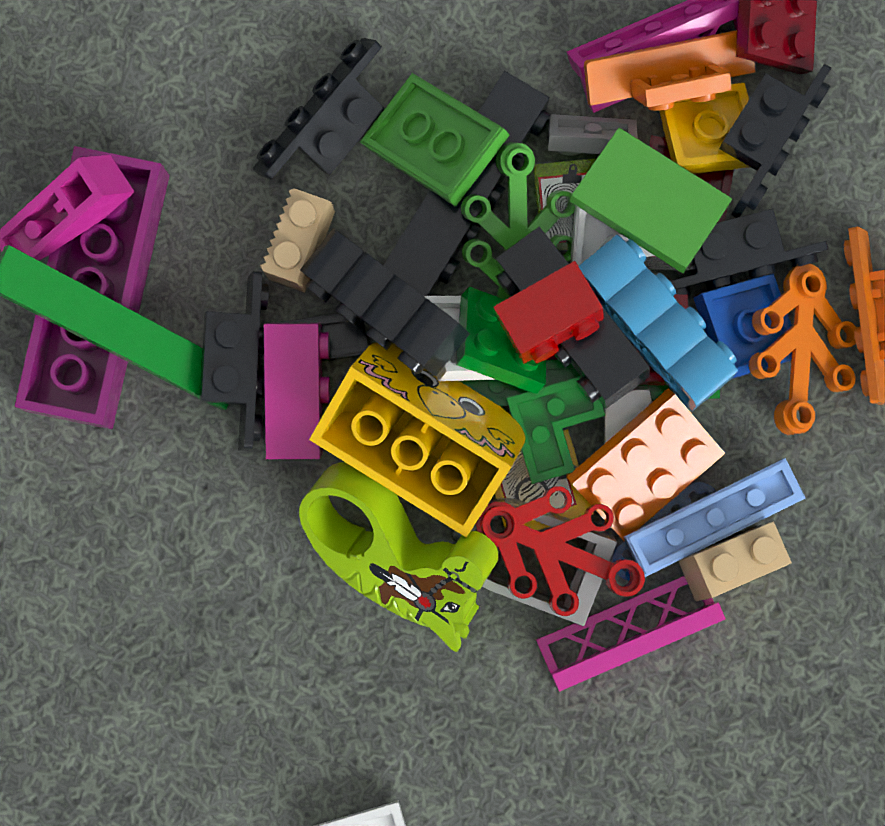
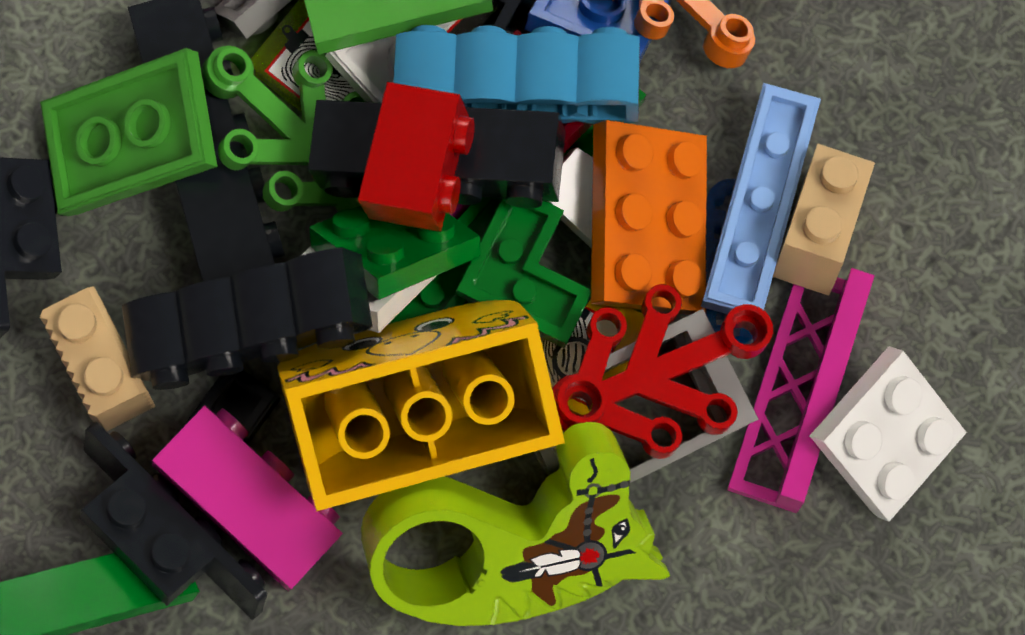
camera: 55 degrees left, 10 degrees down
(642, 703) = (888, 433): none -> white plate

